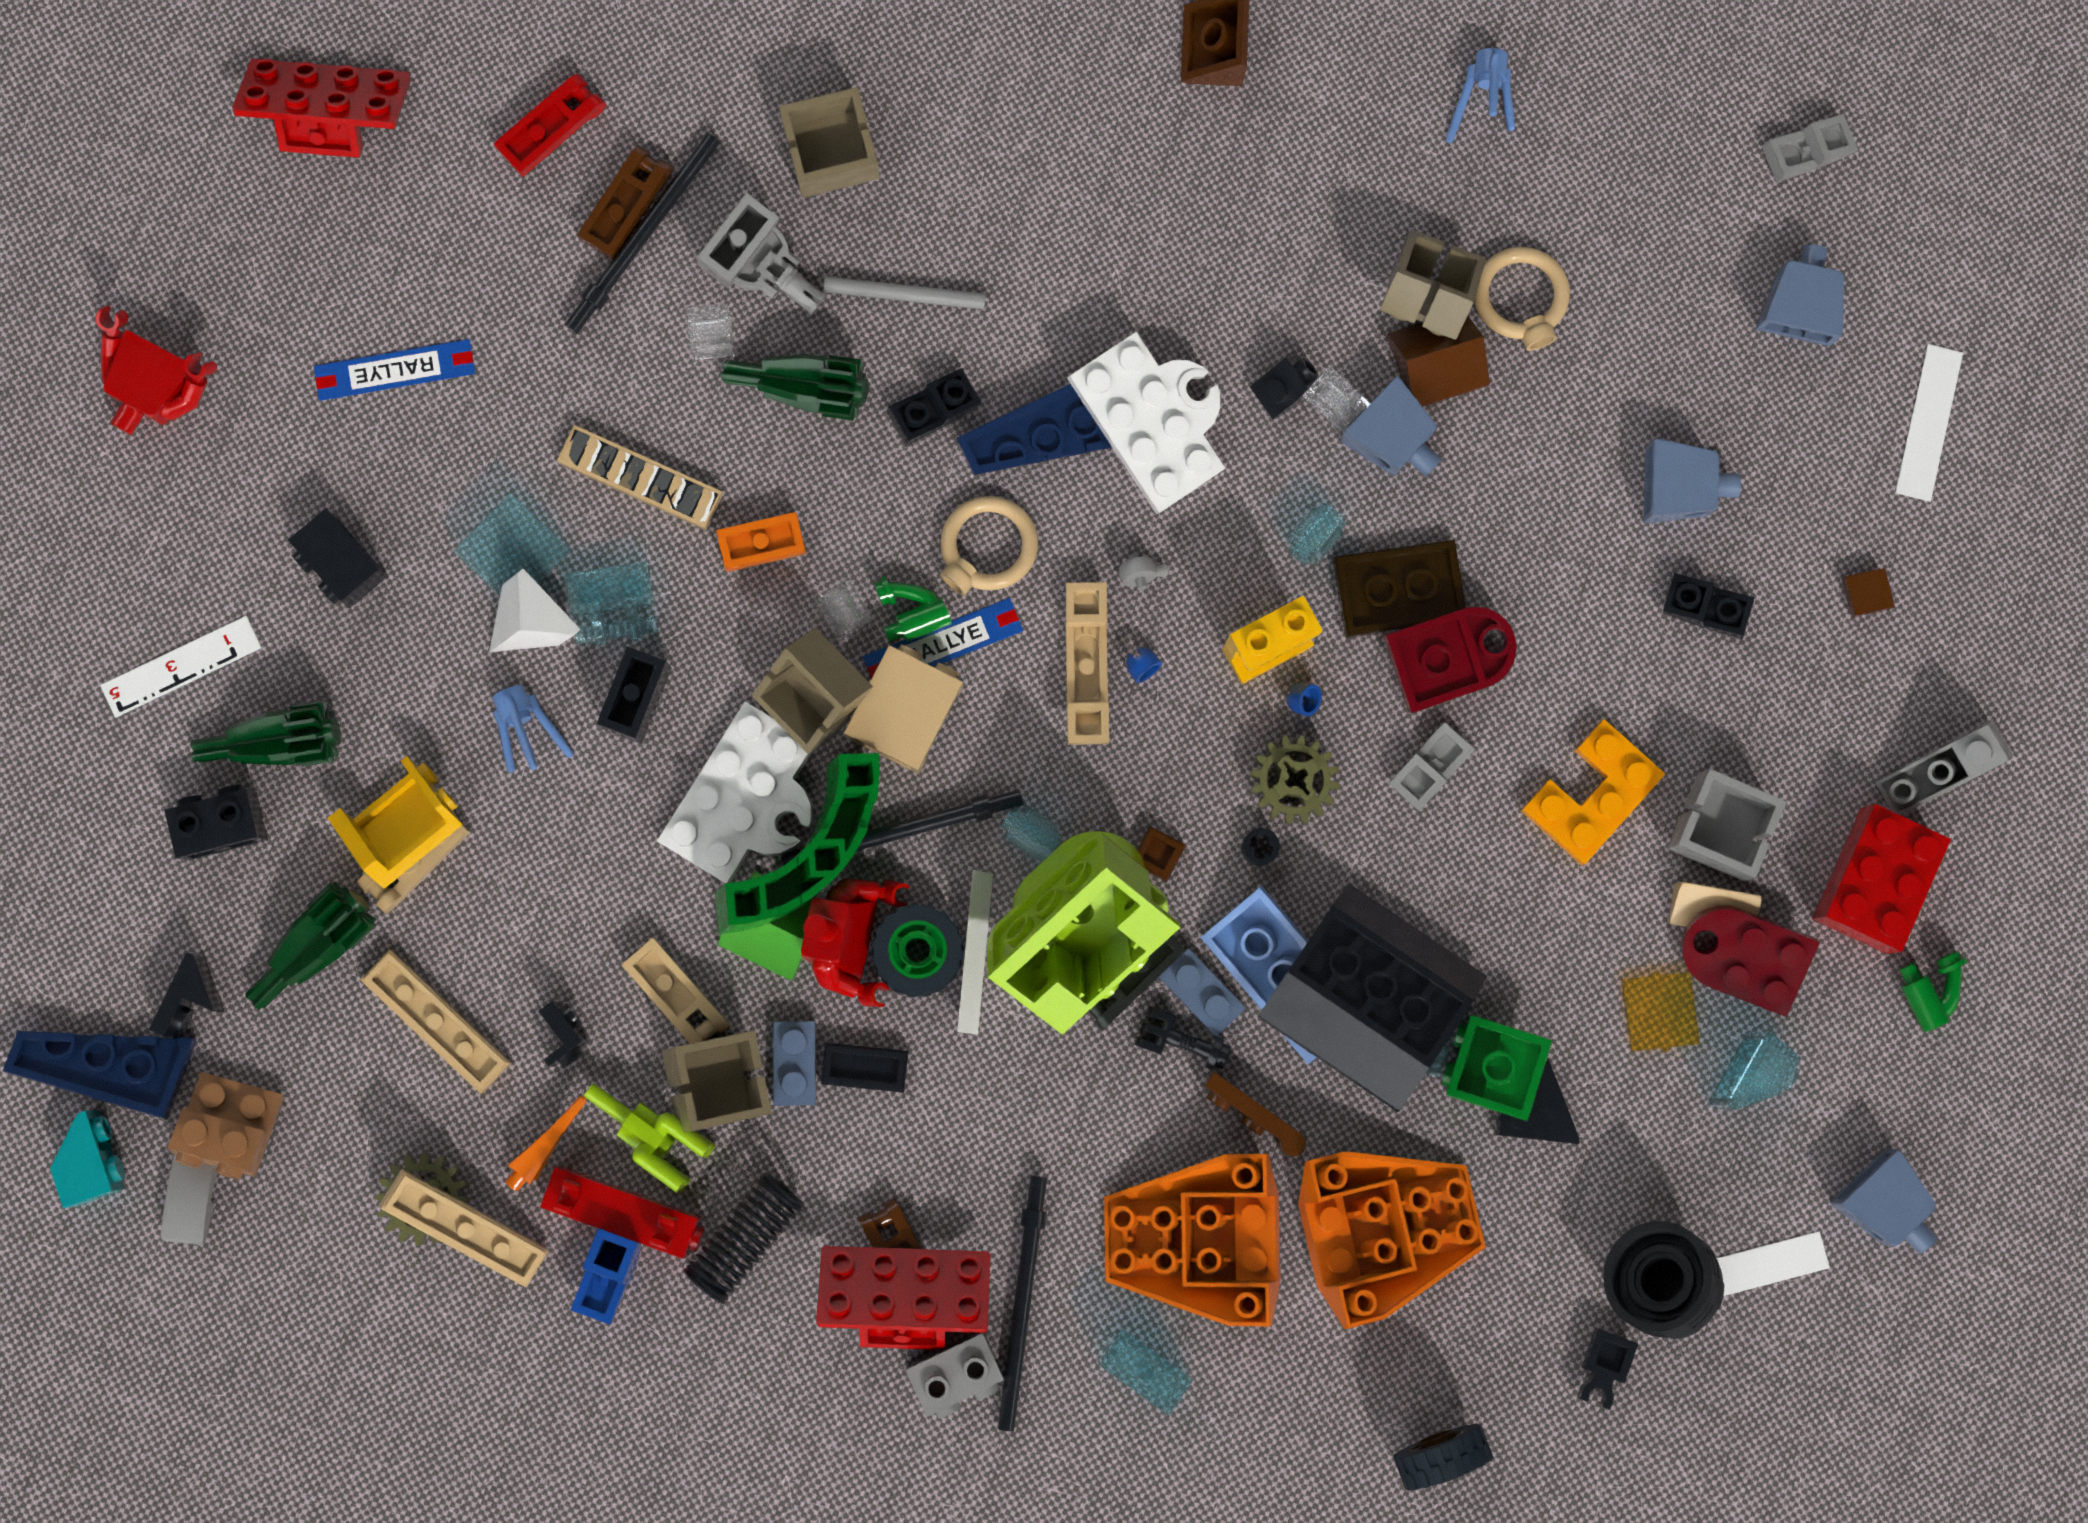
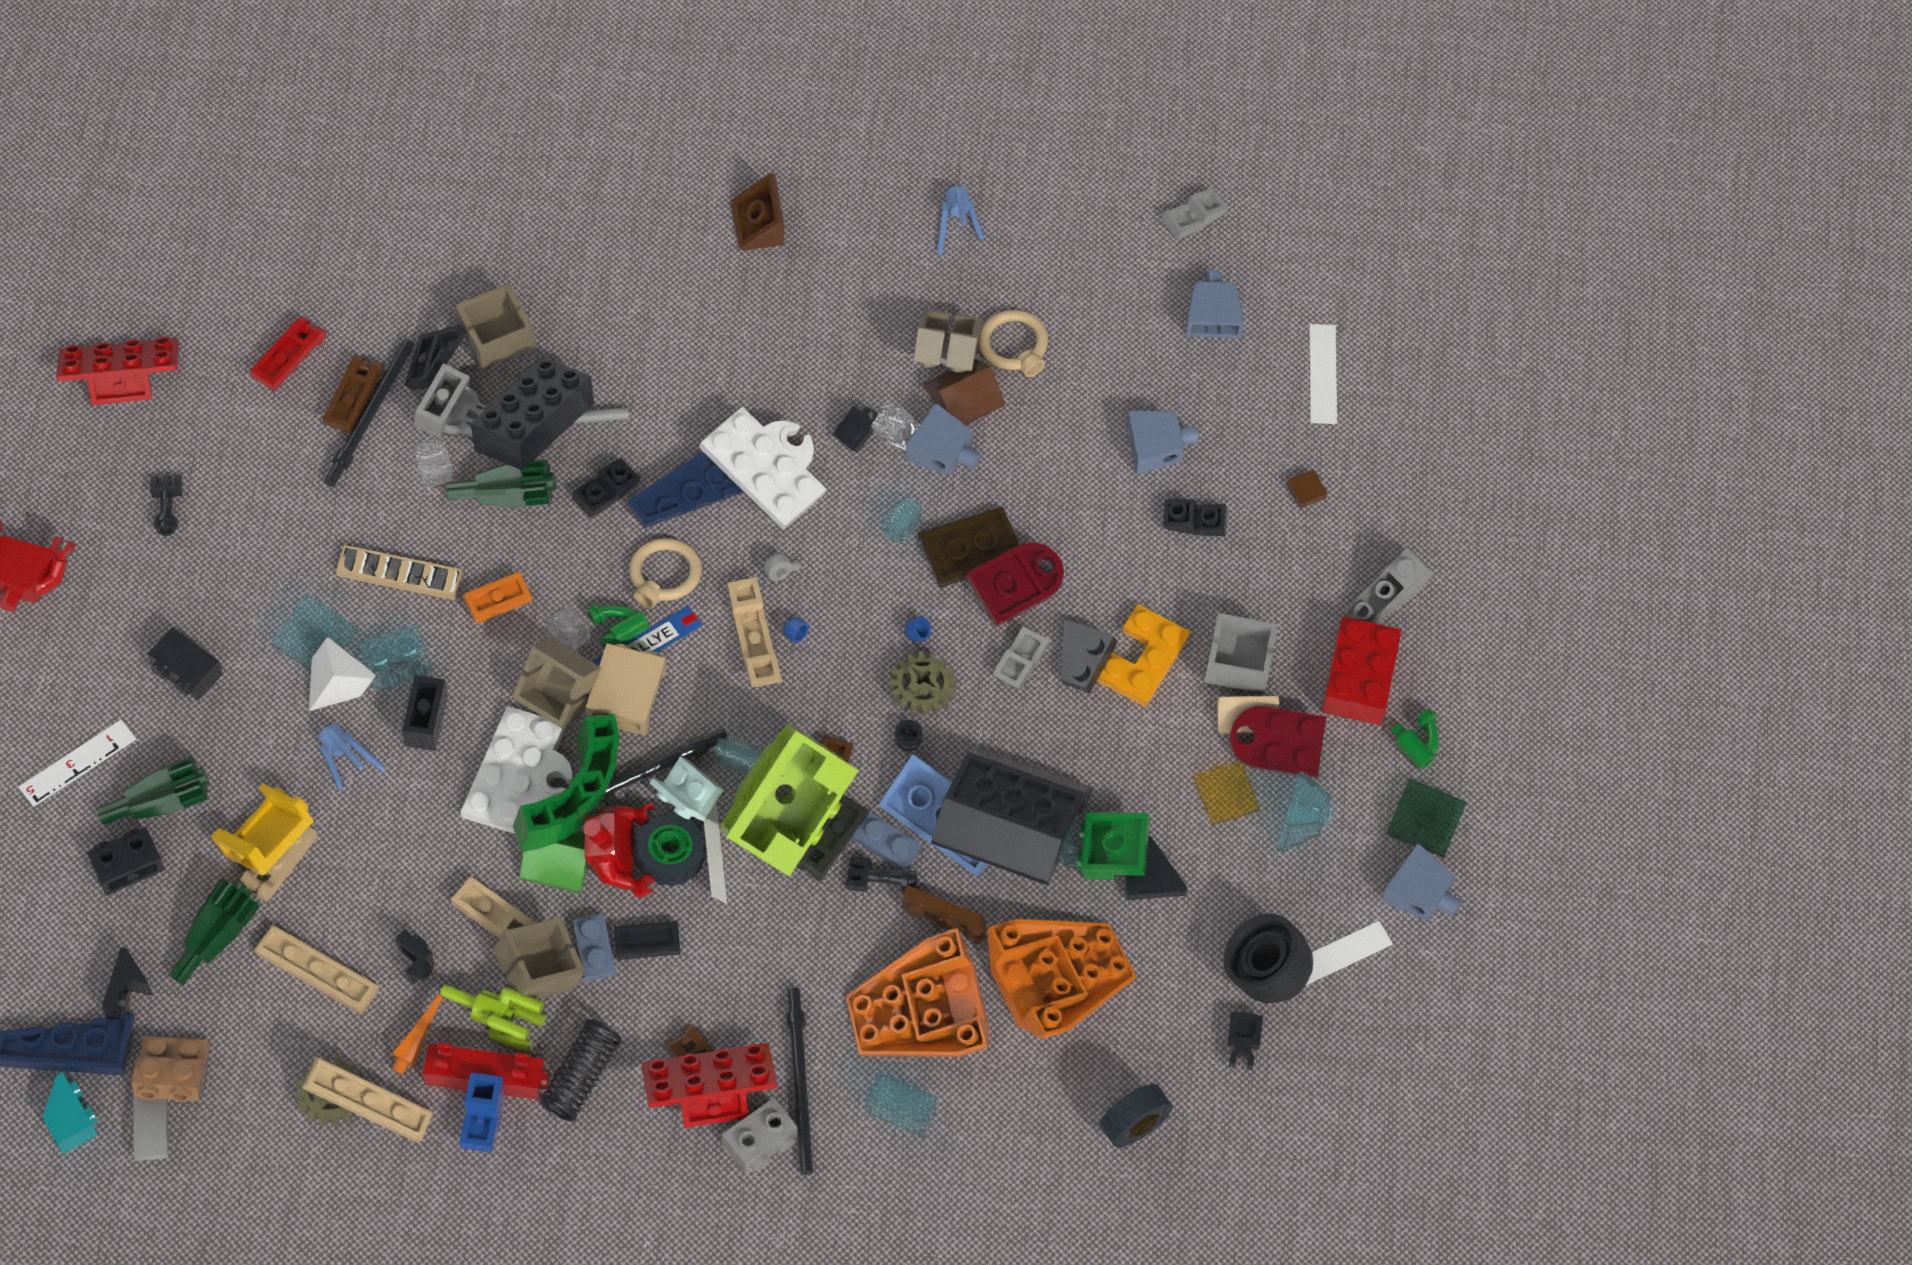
camera: 10 degrees left, 20 degrees down
(347, 347) = (166, 522): none -> black hinge
(394, 370) = (202, 535): sticker -> none
(738, 170) = (431, 353): none -> black wing
(853, 289) = (532, 413): none -> black brick
(954, 877) = (688, 790): none -> light aqua bracket
(1272, 640) = (883, 589): yellow panel -> none
(1516, 780) = (1084, 655): none -> black wing
(1917, 1105) = (1426, 818): none -> clear green plate

